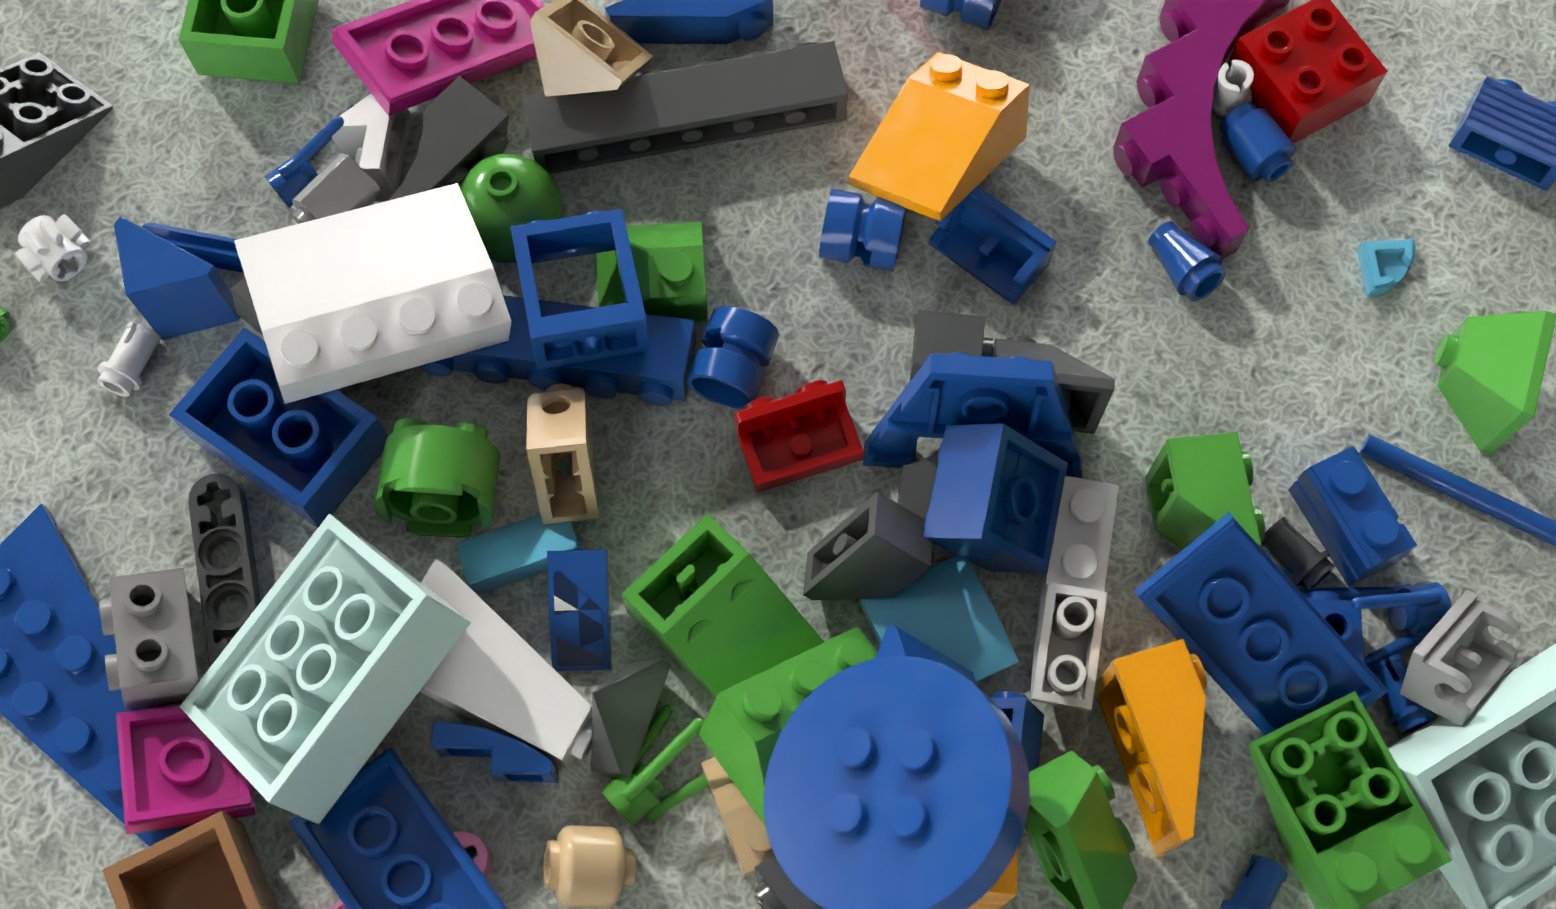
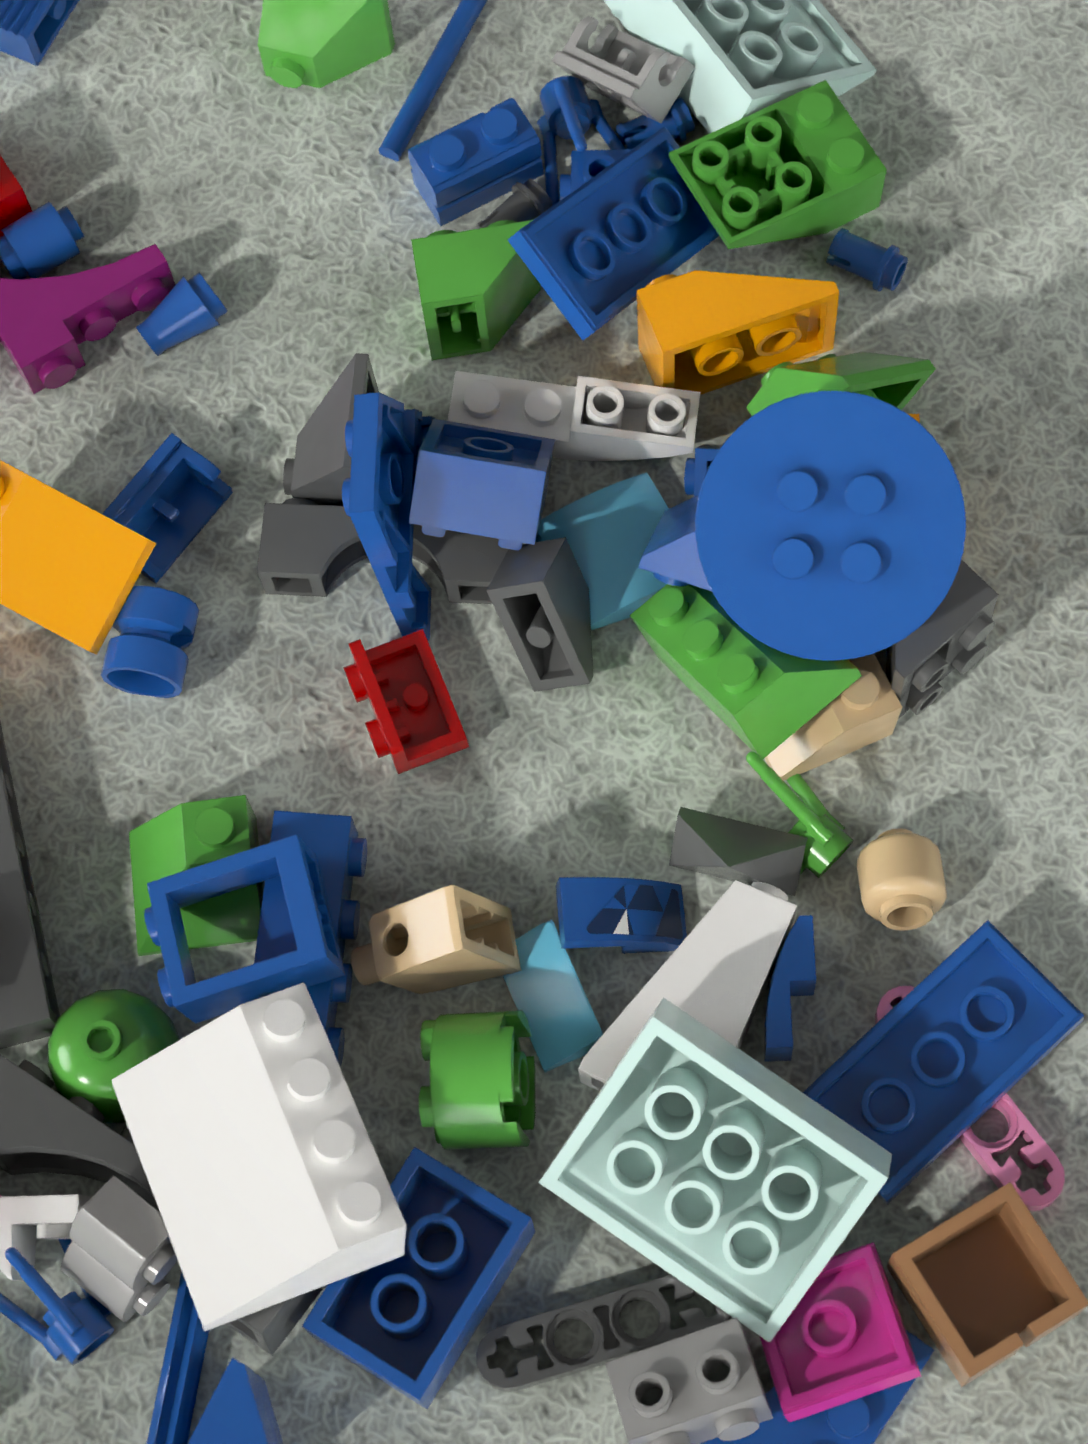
camera: 85 degrees left, 0 degrees up
(717, 610) = (624, 761): bright green slope -> none
(734, 350) = (308, 771): blue wheel -> none
(1384, 264) = (182, 129): medium azure tile -> none

